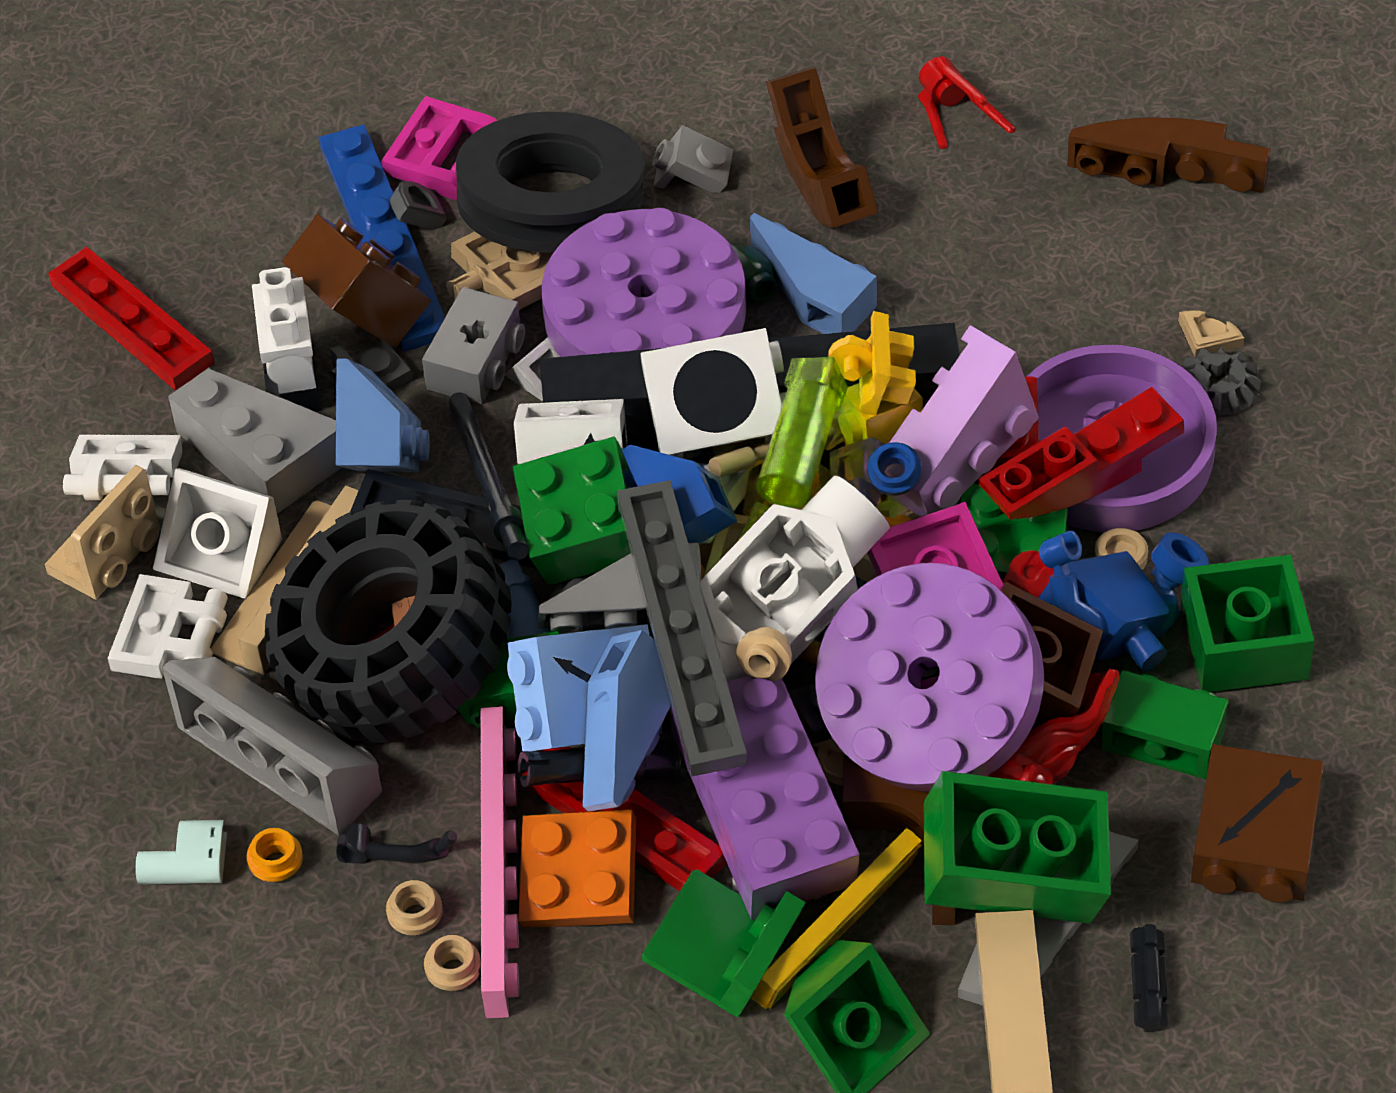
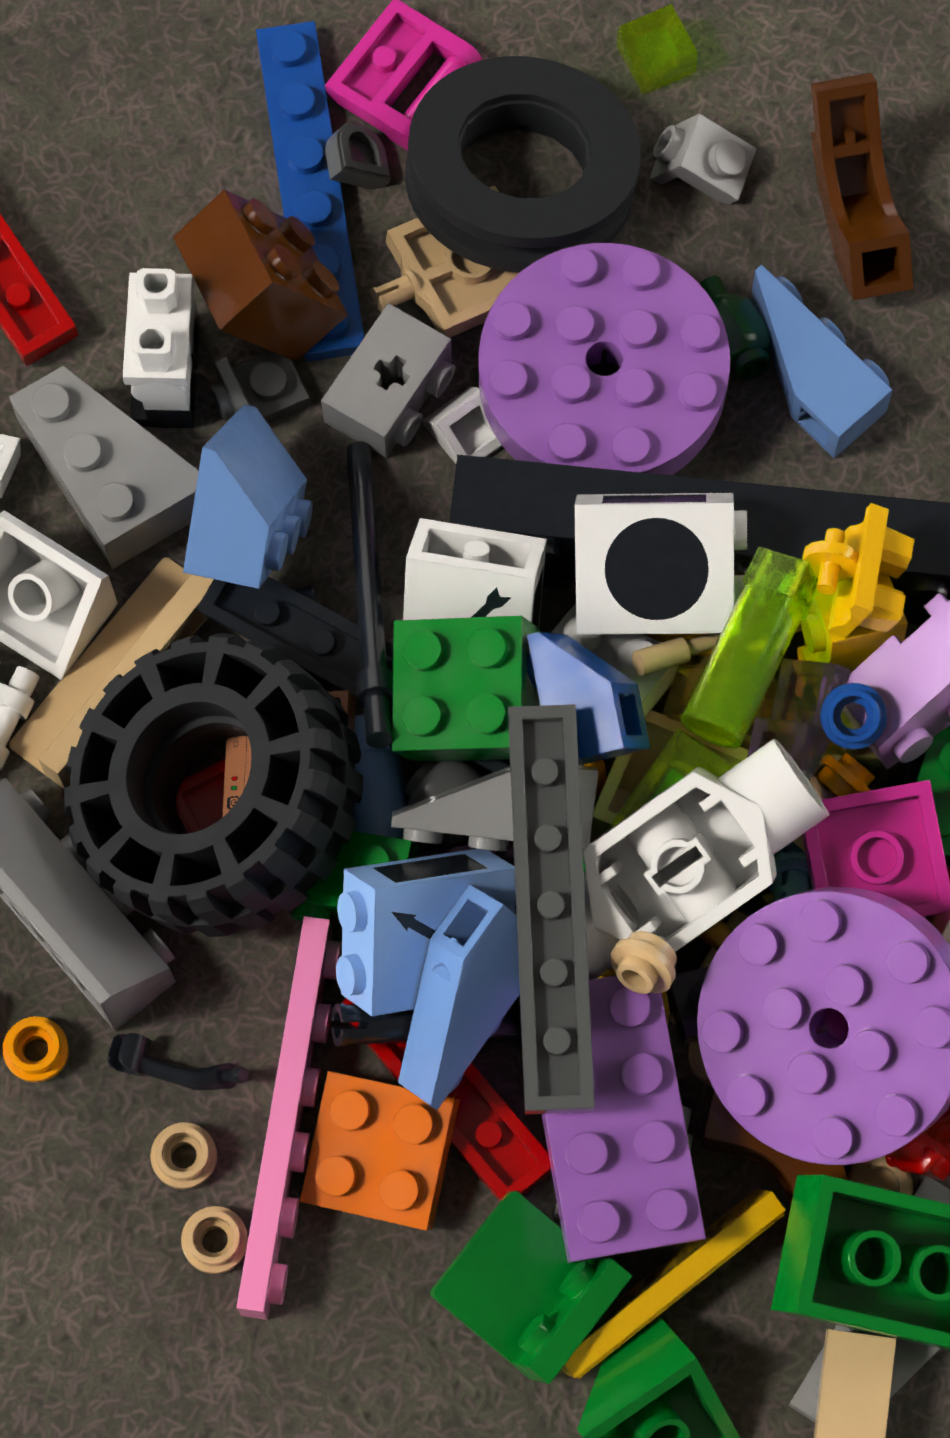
camera: 10 degrees right, 20 degrees up
(640, 97) = (657, 49): none -> clear neon green slope

